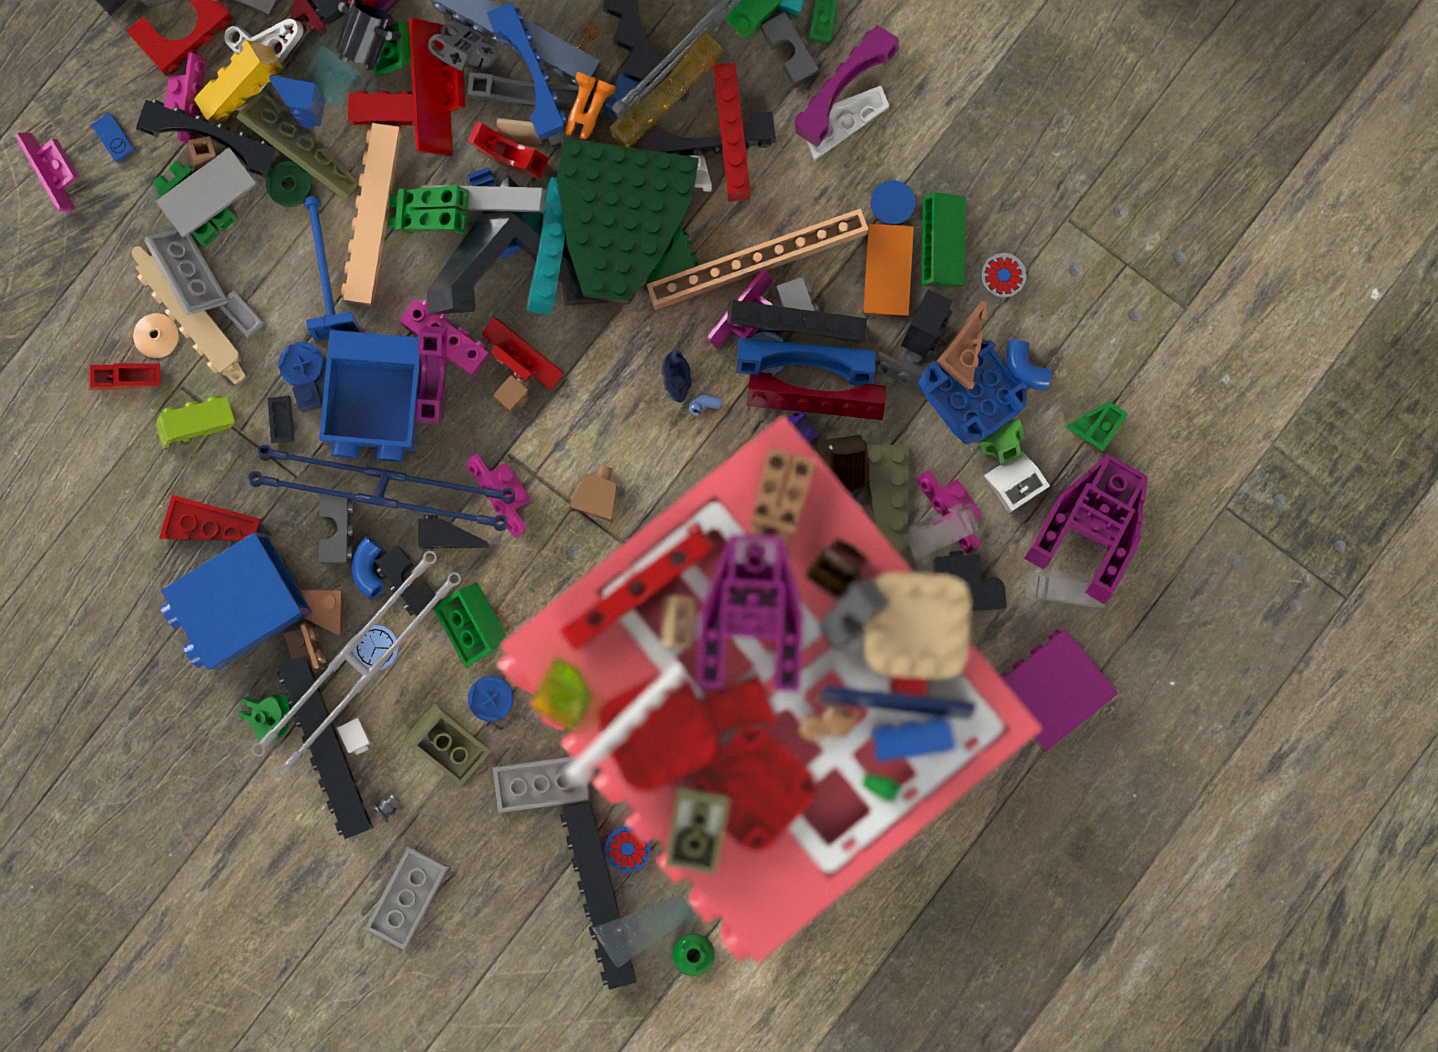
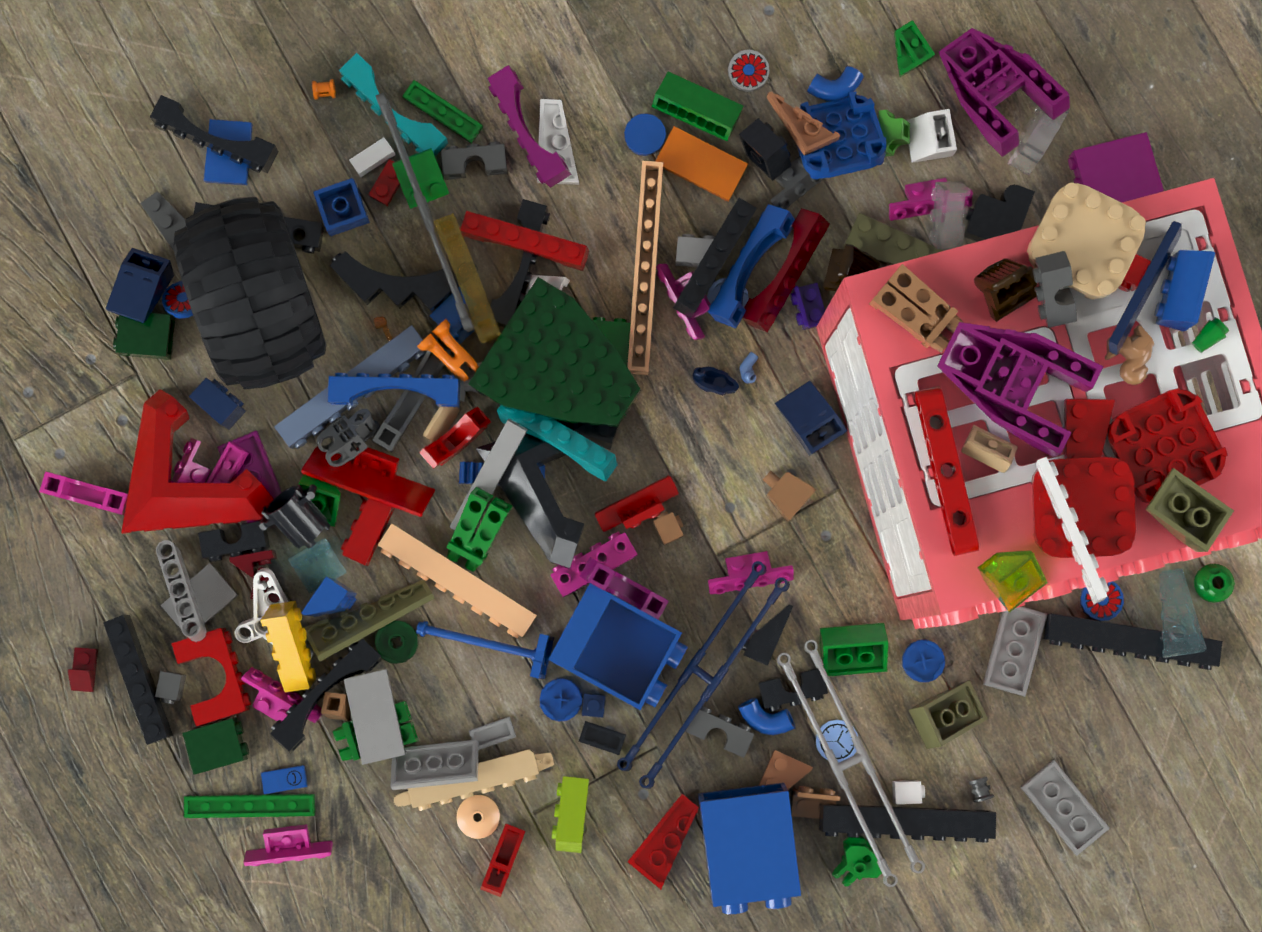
camera: 65 degrees left, 0 degrees up
(74, 116) = (249, 805): none -> green tile
(116, 58) = (215, 745): none -> dark green brick
(677, 478) = (810, 418): none -> dark blue slope

